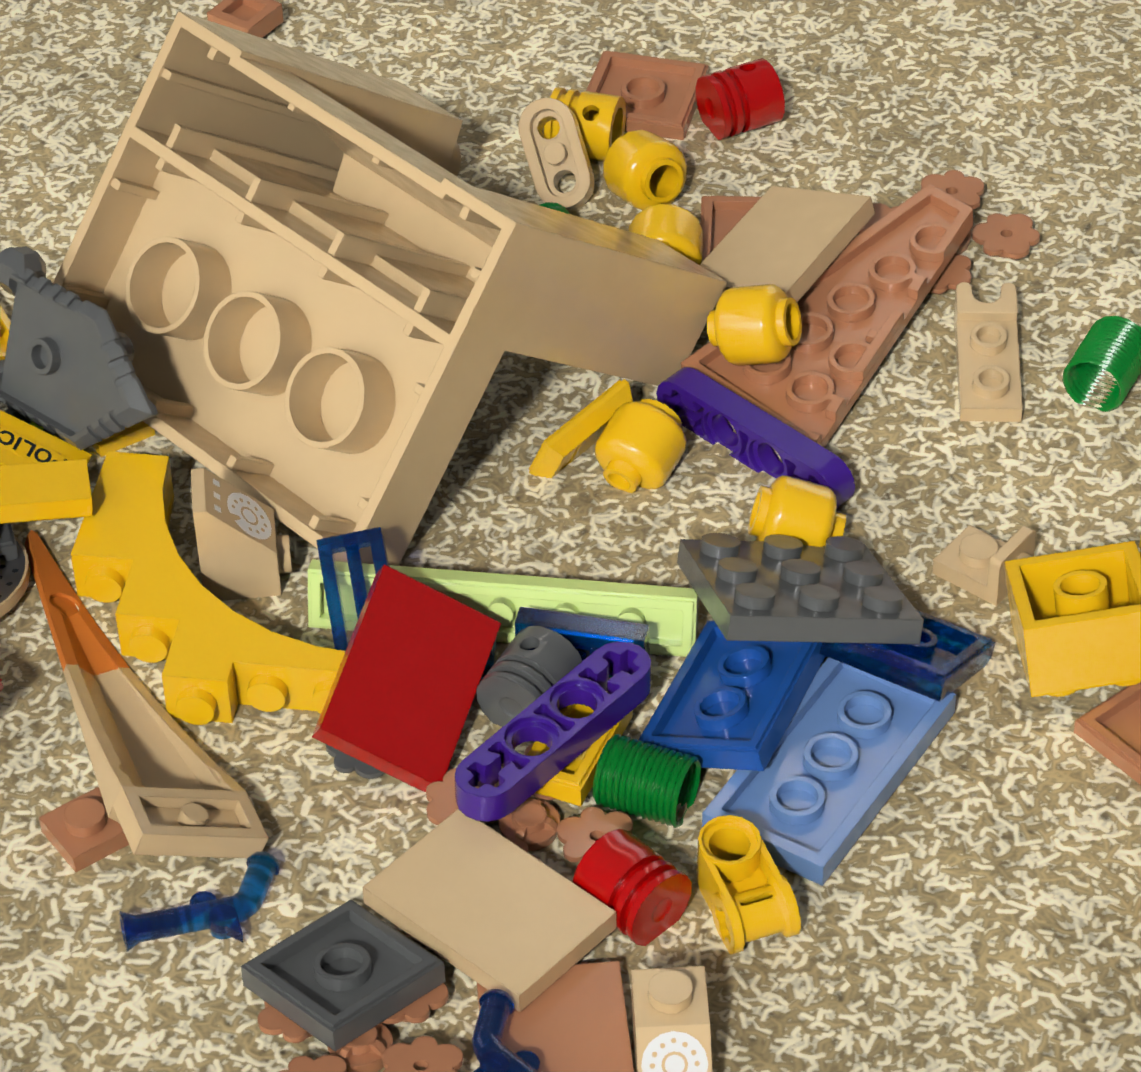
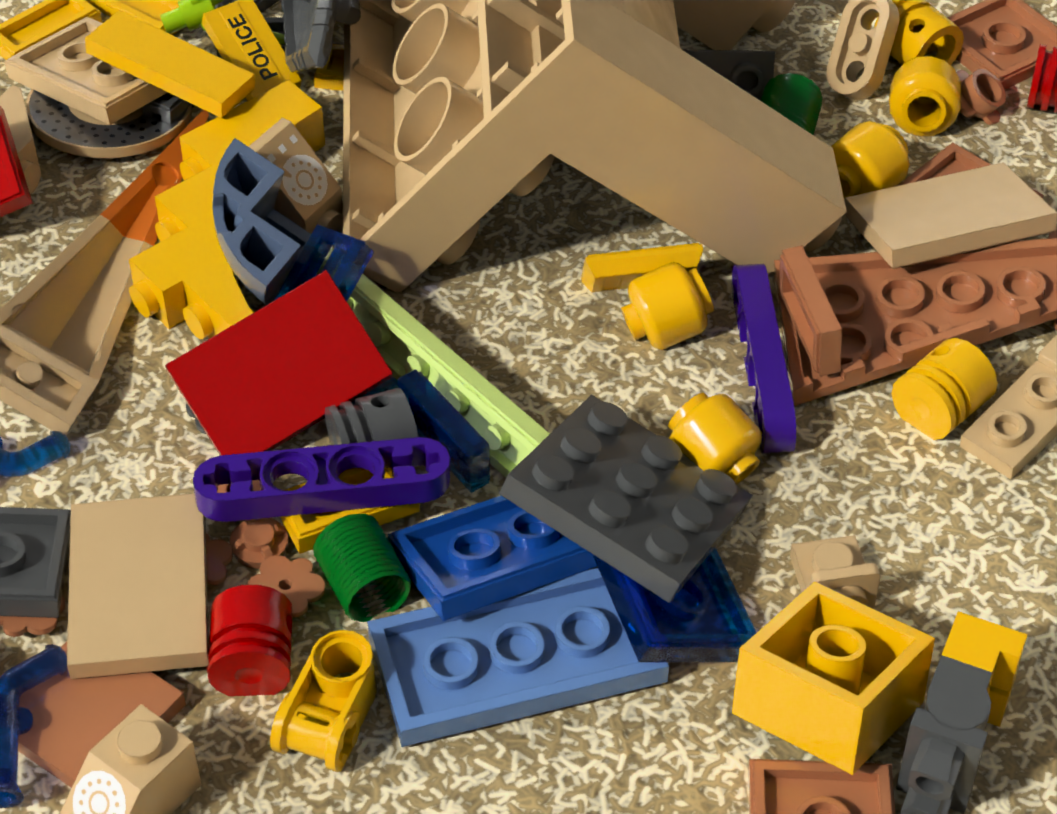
camera: 40 degrees right, 5 degrees up
(276, 591) = (251, 233): none -> sand blue brick
(689, 142) = (981, 95): none -> nougat plate
(754, 324) = (846, 259): yellow head -> none
(772, 376) = (810, 311): none -> nougat tile
(917, 379) = (945, 388): none -> yellow piece

